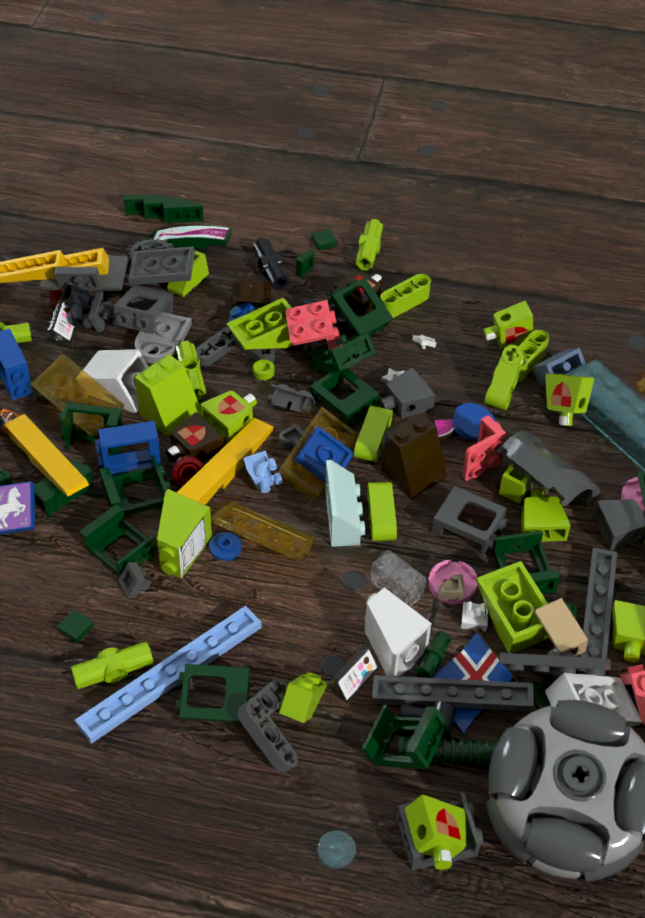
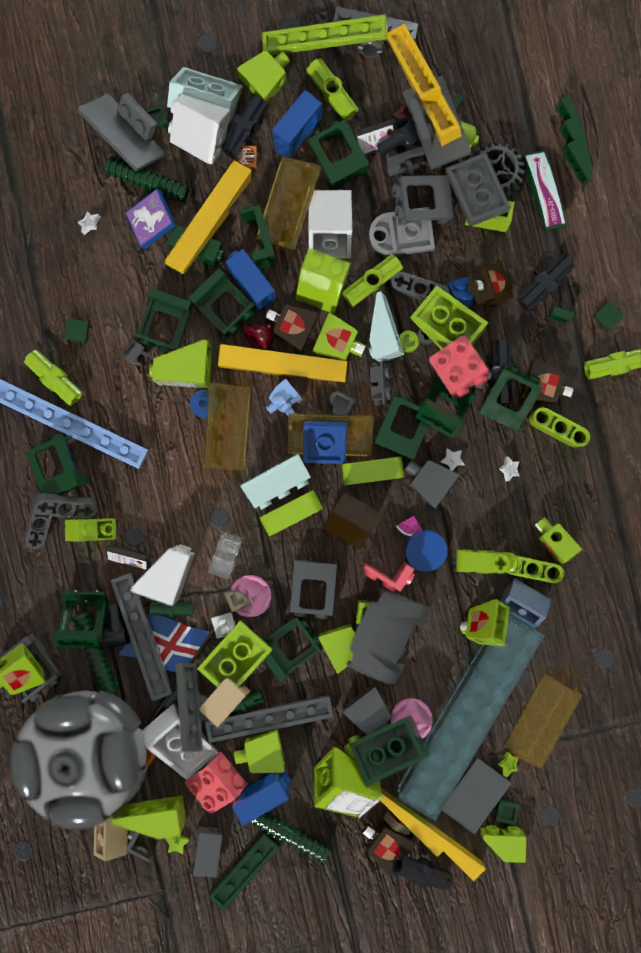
camera: 65 degrees right, 40 degrees up
(75, 348) = (346, 168): none -> dark green window
(247, 377) = (384, 335): none -> light aqua slope

